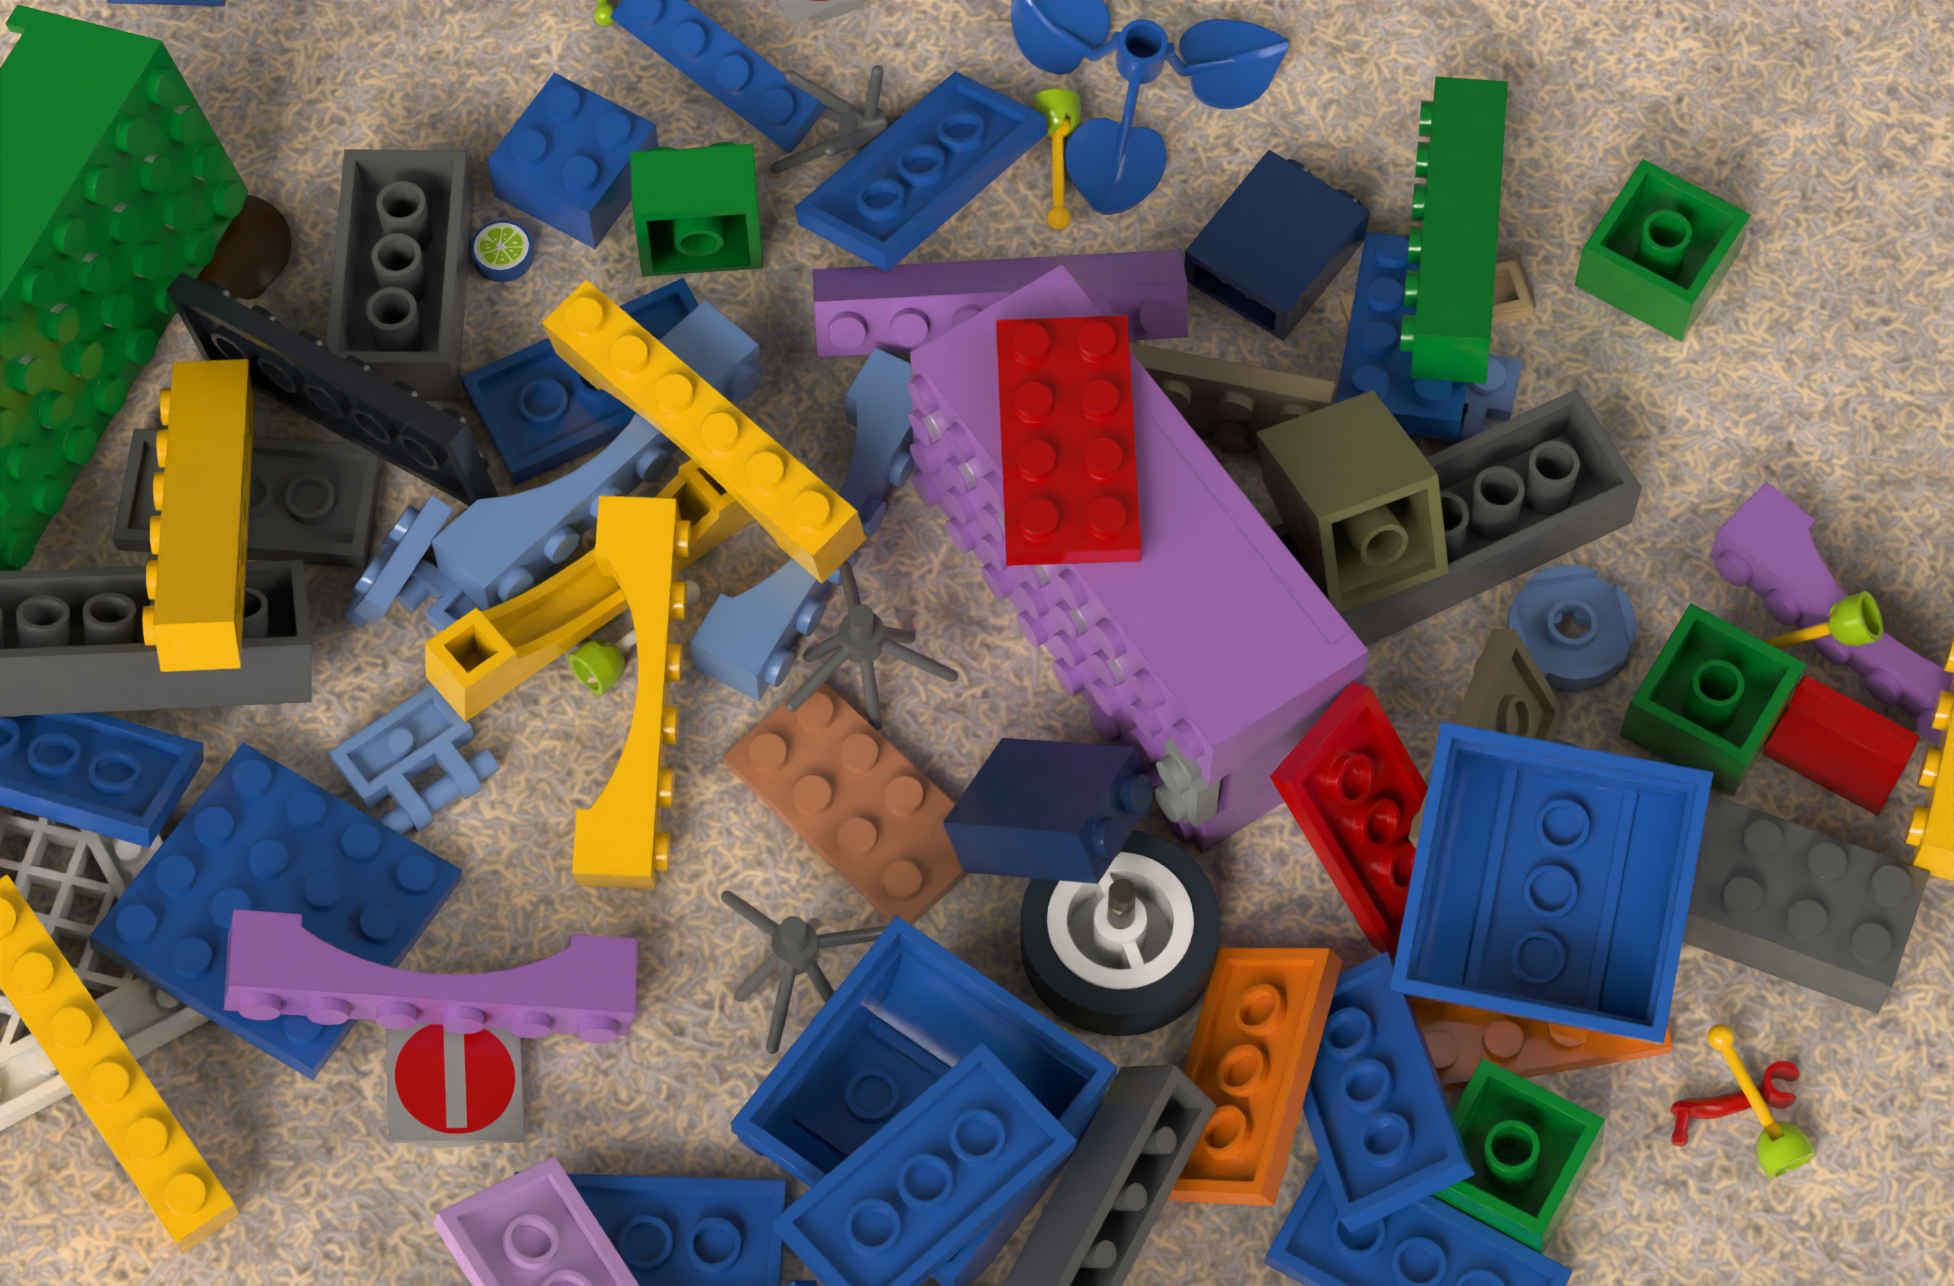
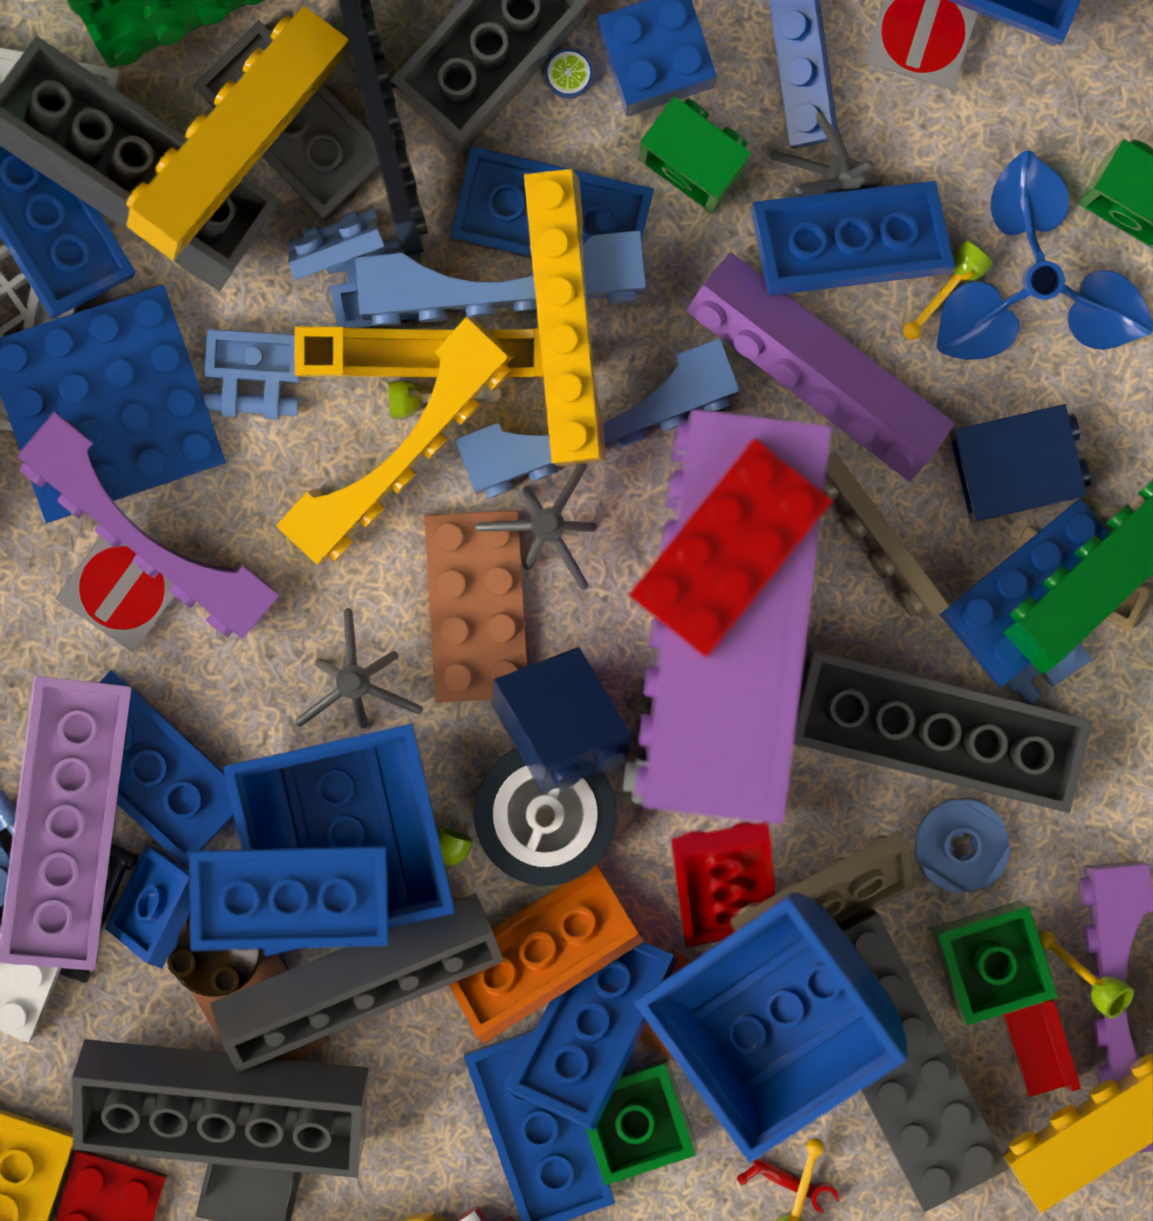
camera: 40 degrees right, 25 degrees up
(1356, 500) = (892, 688): olive slope -> none

